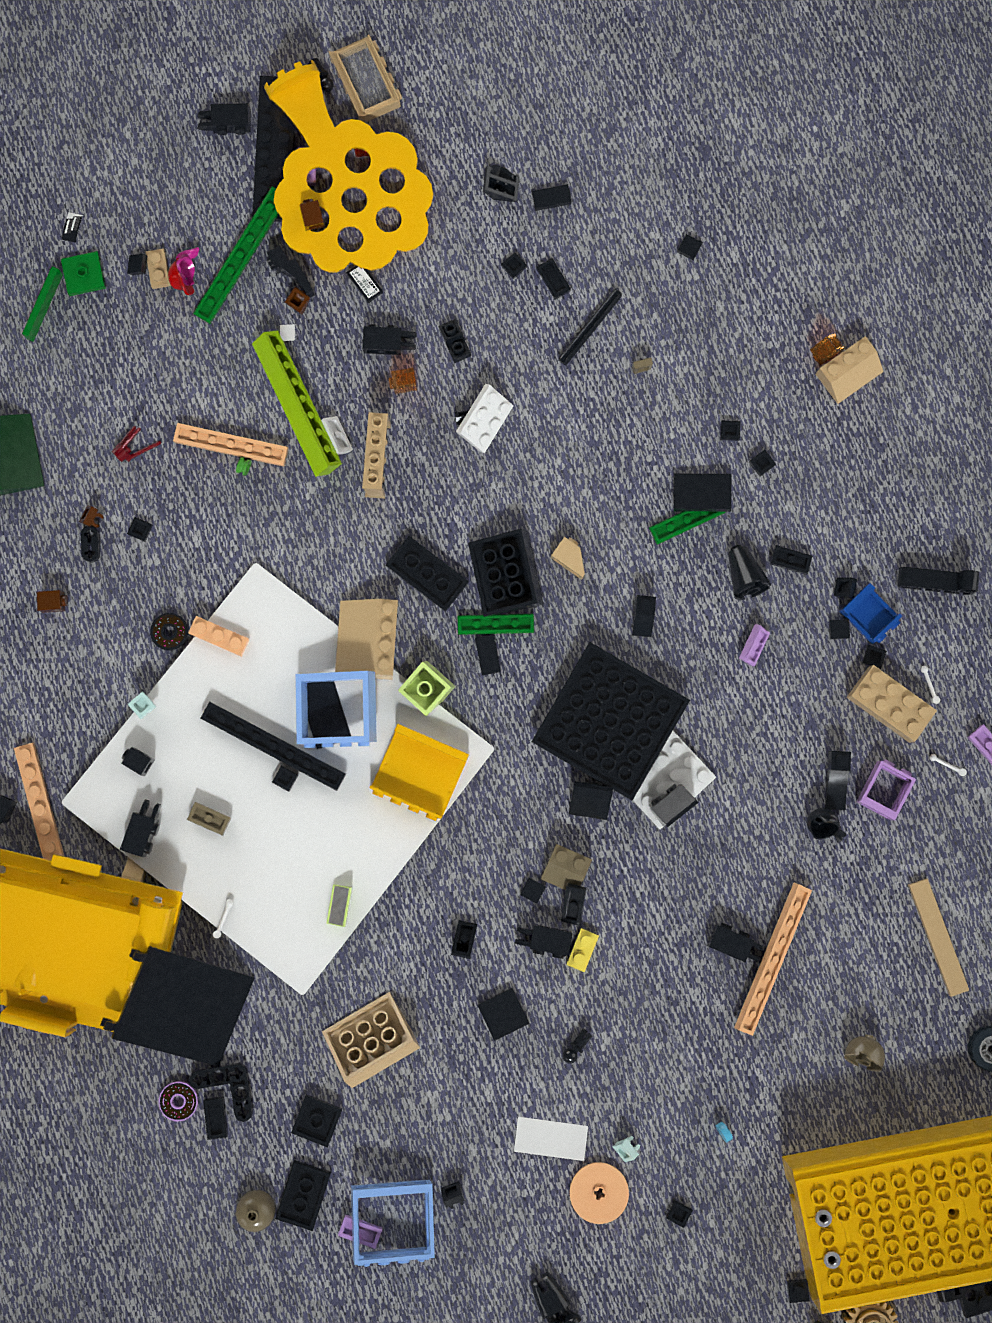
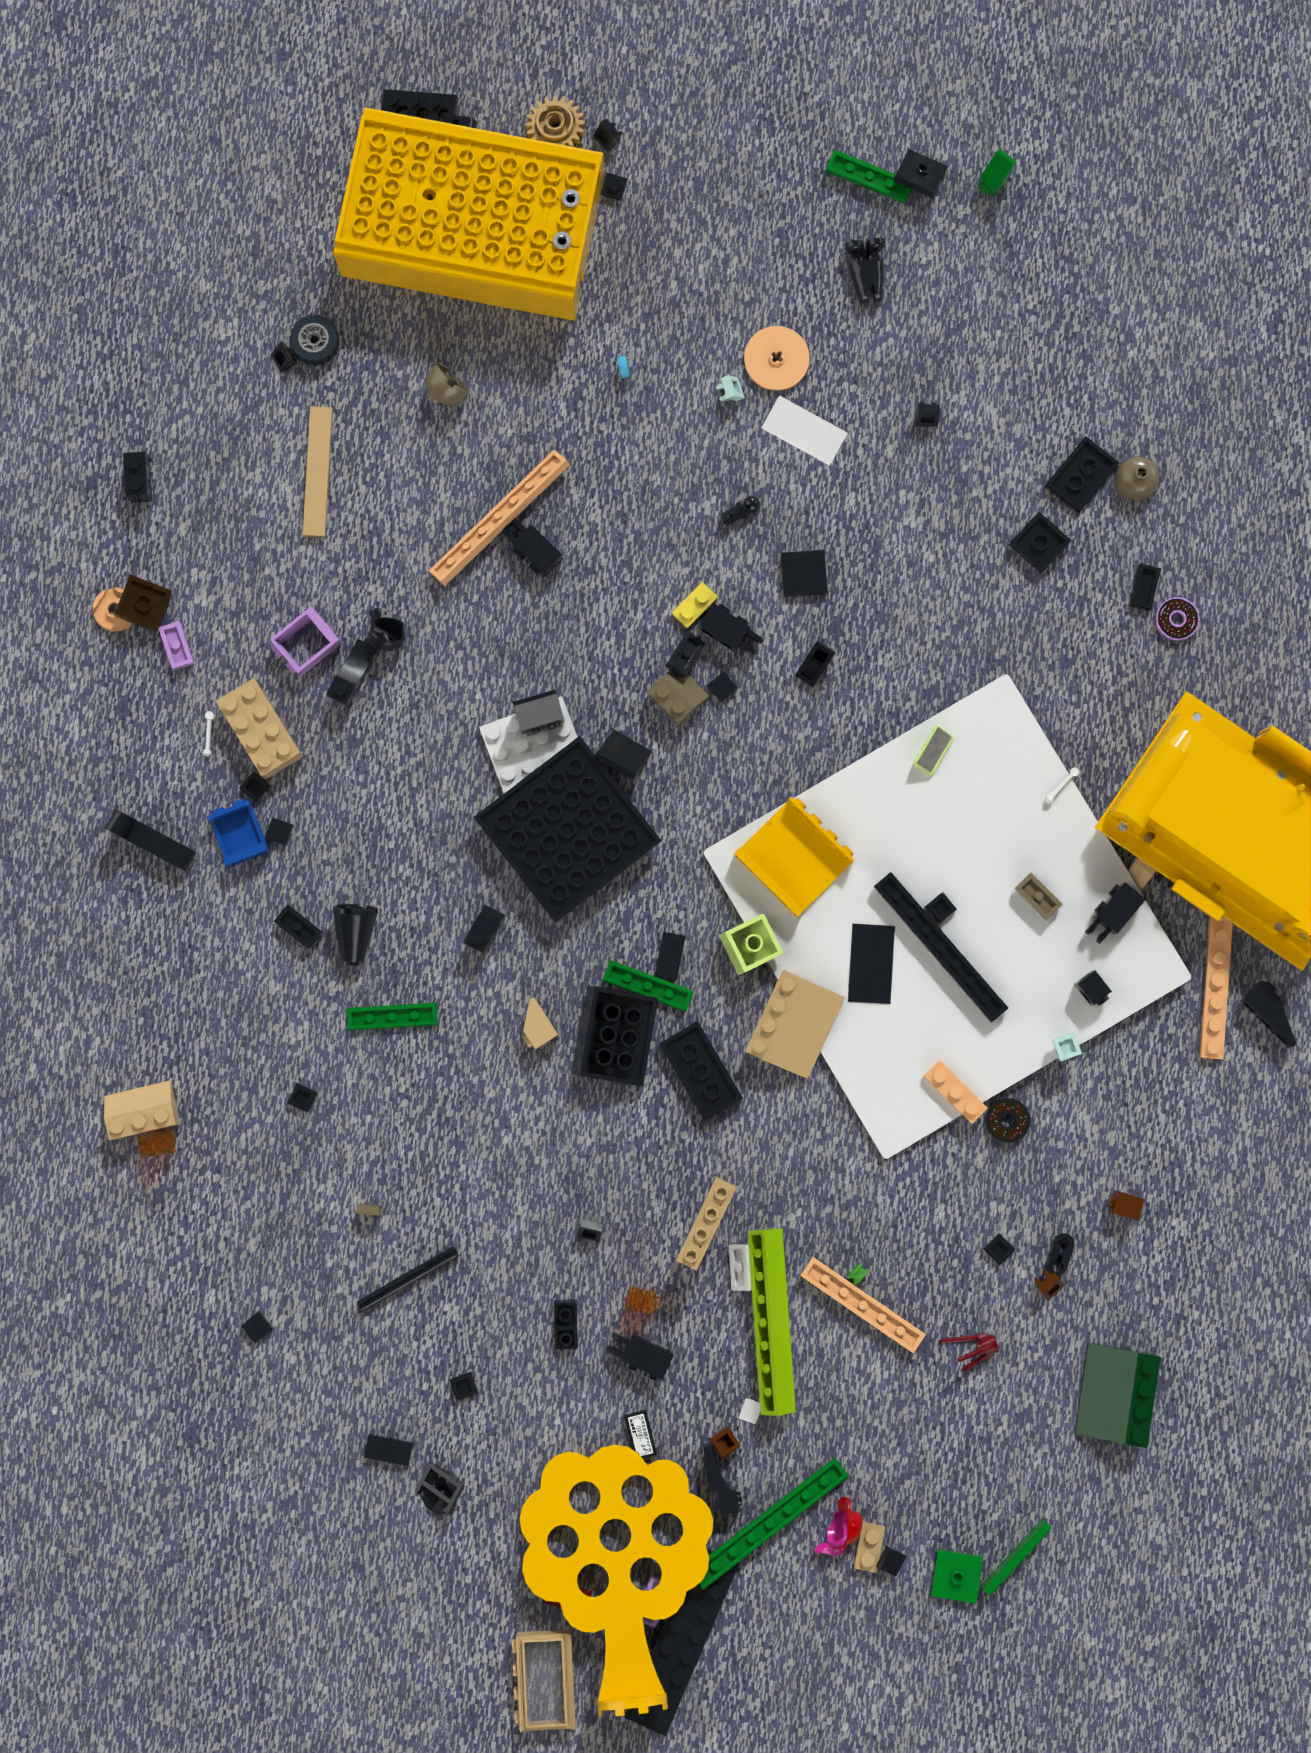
camera: 165 degrees left, 0 degrees up
(71, 227) = (950, 1638): sticker -> none
(181, 1006) = (1138, 710): black flag -> none
(226, 119) = (723, 1696): black hinge -> none
(234, 1083) = (1111, 614): black beam -> none
(311, 214) = (671, 1534): reddish brown brick -> none
(326, 82) = (591, 1694): black pin -> none
(368, 1232) = (1036, 416): lavender plate -> none
(369, 708) = (821, 944): light blue window -> none
(370, 1040) = (953, 601): tan slope -> none
(401, 1255) = (989, 444): light blue window -> none
(484, 418) = (568, 1218): white plate -> none
(553, 278) = (425, 1352): black tile -> none
(679, 1213) = (703, 306): black tile -> none
(702, 492) = (363, 1039): black tile -> none
(754, 645) = (378, 850): lavender plate -> none
(762, 463) = (283, 1046): black plate -> none
(845, 587) = (253, 873): black tile -> none
(962, 772) = (216, 630): white hinge -> none

